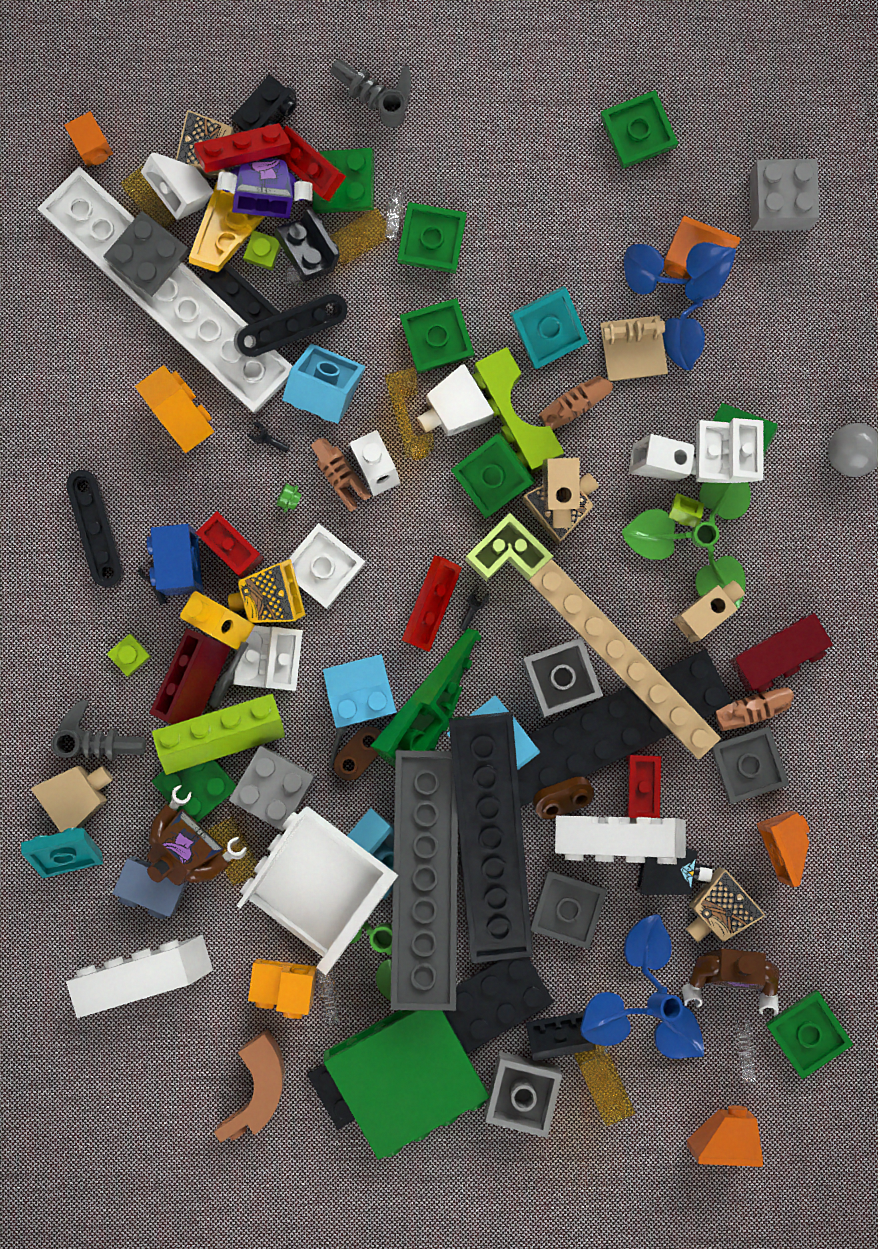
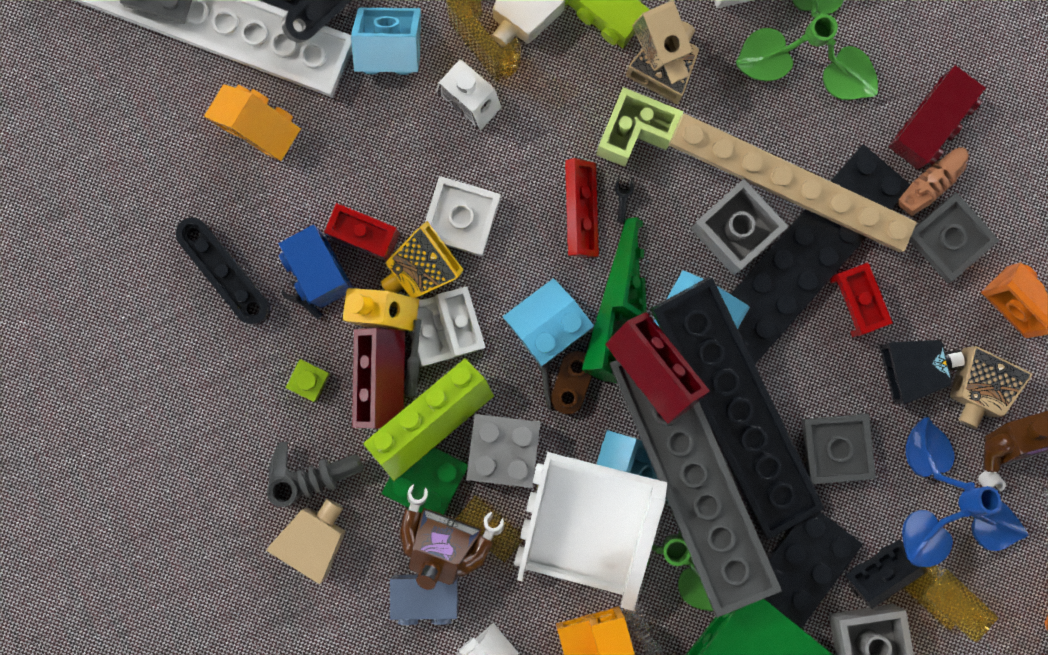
camera: 20 degrees left, 0 degrees up
(62, 852) = (323, 599): teal plate -> none
(265, 437) = (354, 116): black hand -> none
(288, 497) = (399, 163): bright green plate -> none
(339, 472) = (438, 119): nougat hinge -> none
(431, 772) = (657, 367): none -> dark red brick
(493, 475) = (589, 60): green plate -> none
(563, 798) = (788, 343): reddish brown plate -> none
(621, 837) = (863, 356): white wedge -> none
(686, 510) = (788, 19): lime plate -> none
(700, 619) = (852, 106): tan torso -> none

